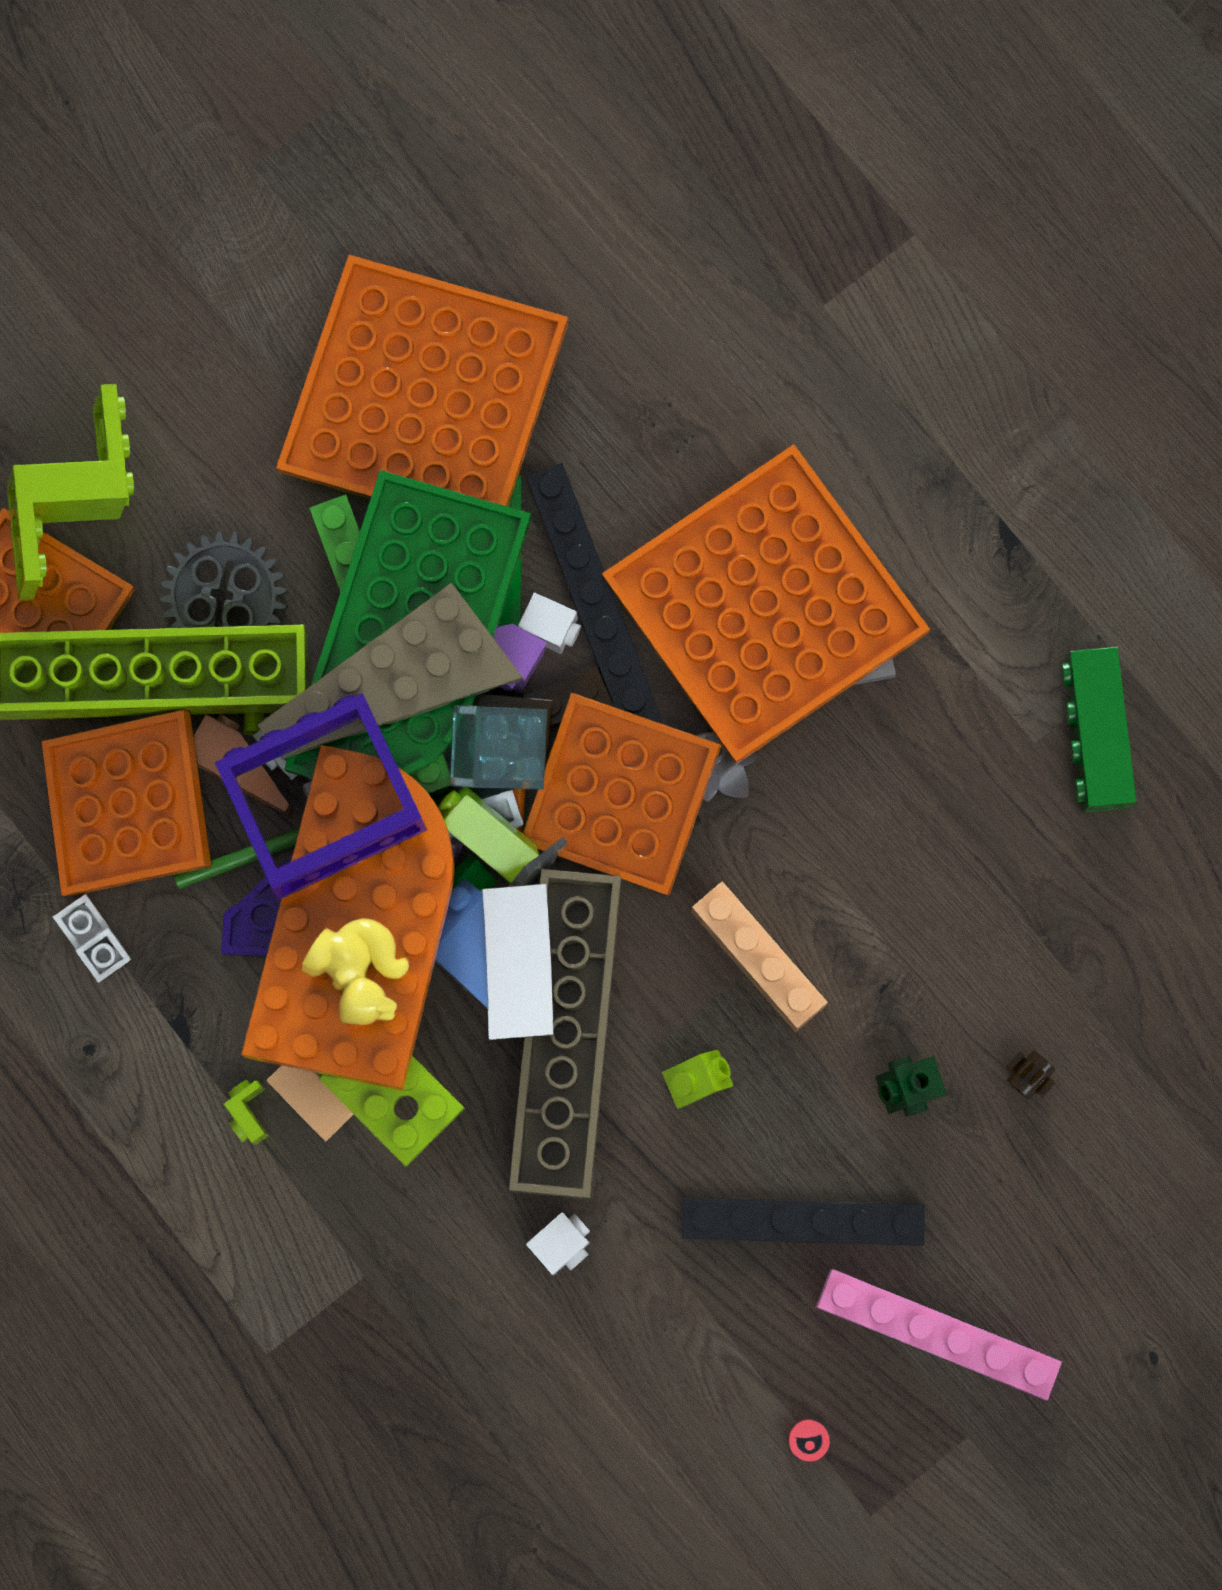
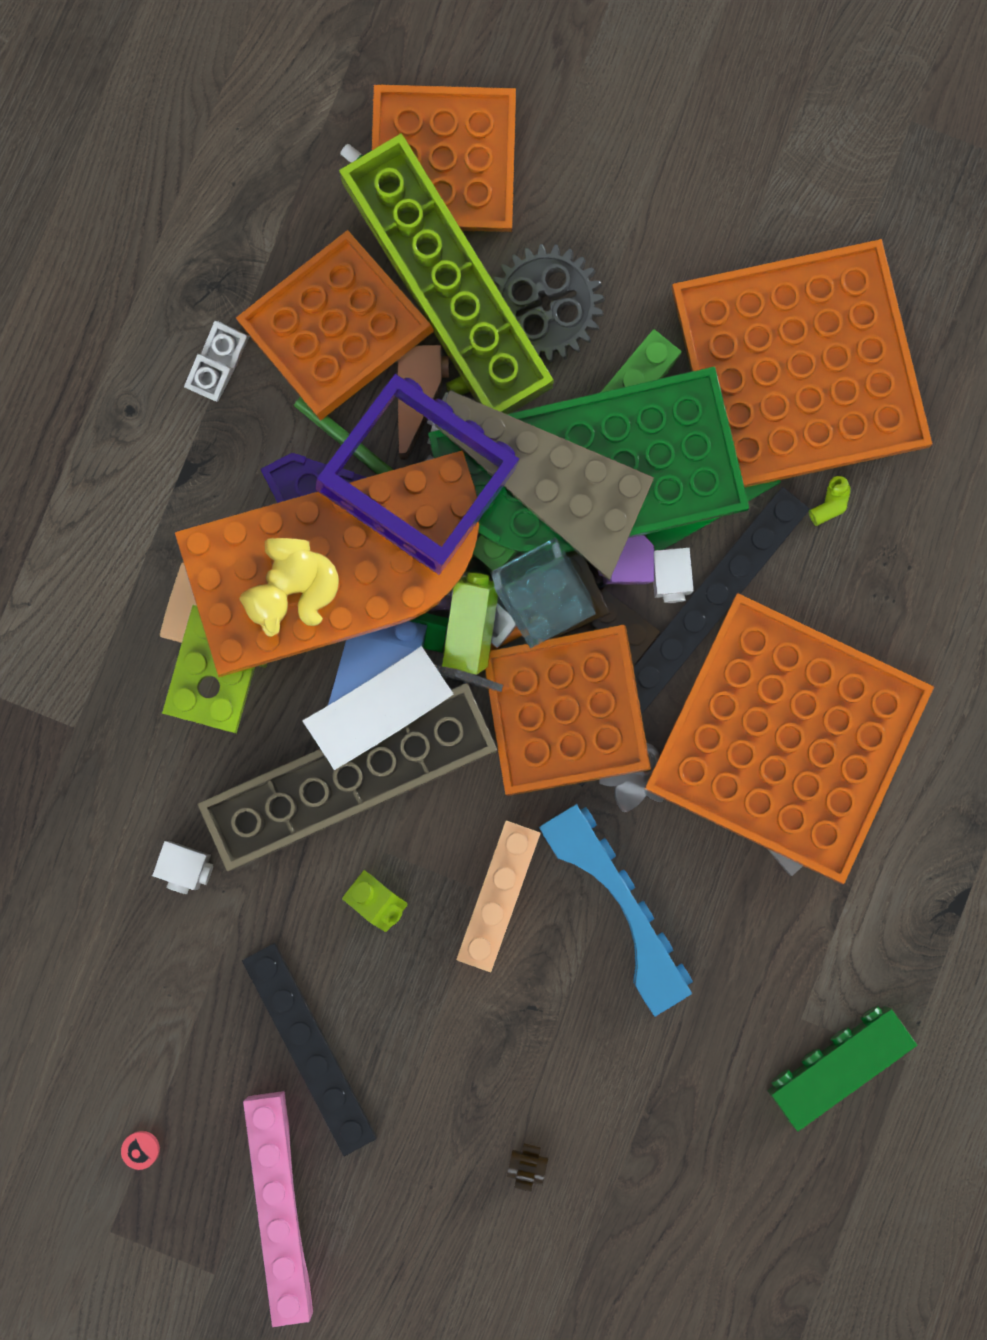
camera: 55 degrees right, 5 degrees up
(69, 491) = (557, 131): lime bracket -> none
(245, 1122) = (139, 565): lime bracket -> none
(569, 437) = (835, 501): none -> lime arm
(910, 1085) = (463, 1075): dark green brick -> none
(916, 851) = (655, 974): none -> dark azure arch

